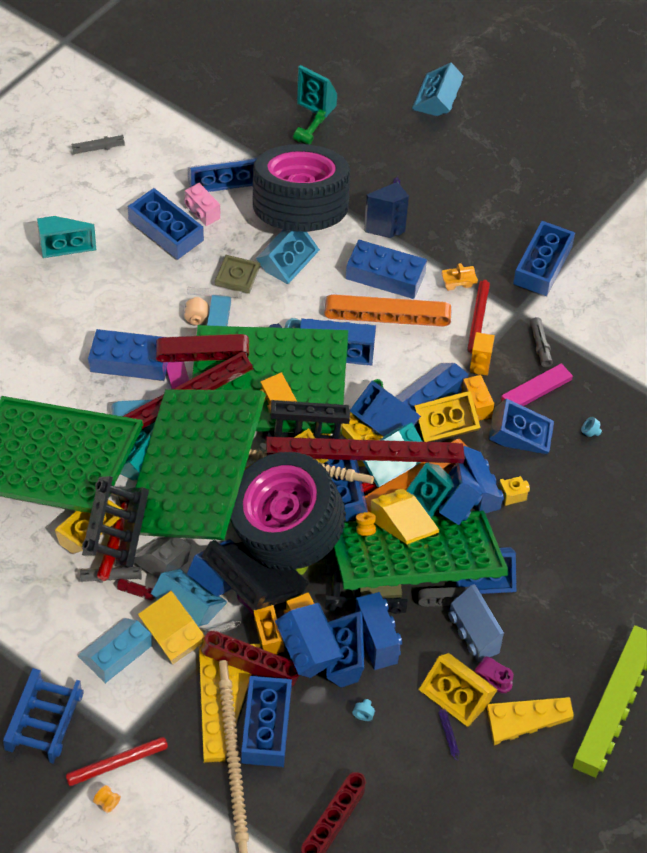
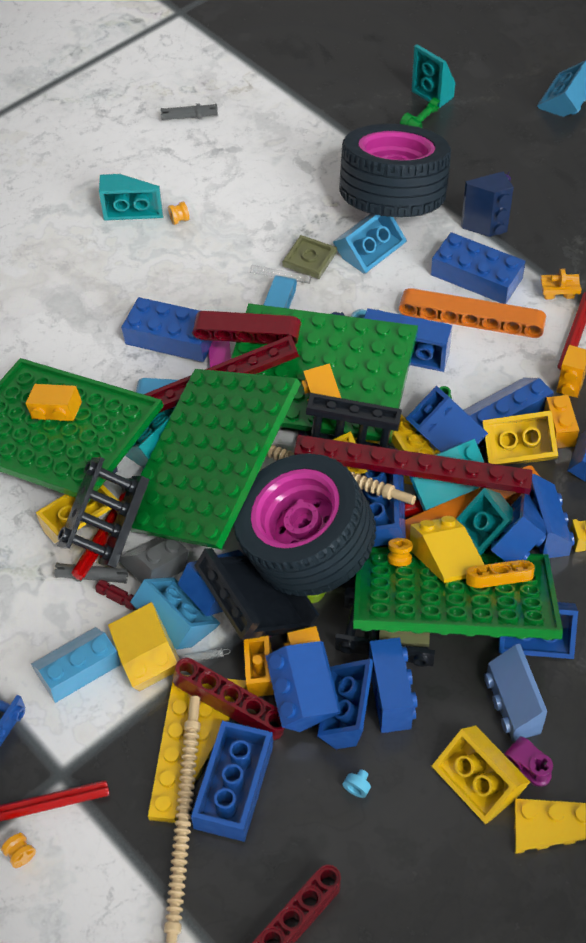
camera: 15 degrees right, 0 degrees up
(48, 432) = (53, 402): none -> light orange brick
(111, 244) = (178, 212): none -> light orange wheel
(165, 223) = (241, 196): blue brick -> none
(196, 310) = (255, 290): light nougat head -> none
(202, 204) = (286, 181): bright pink brick -> none
(222, 175) = (309, 153): blue slope -> none
(439, 596) = (476, 651): dark grey beam -> none
(447, 734) = (459, 827): dark purple piece -> none
(449, 531) = (500, 573): none -> light orange beam

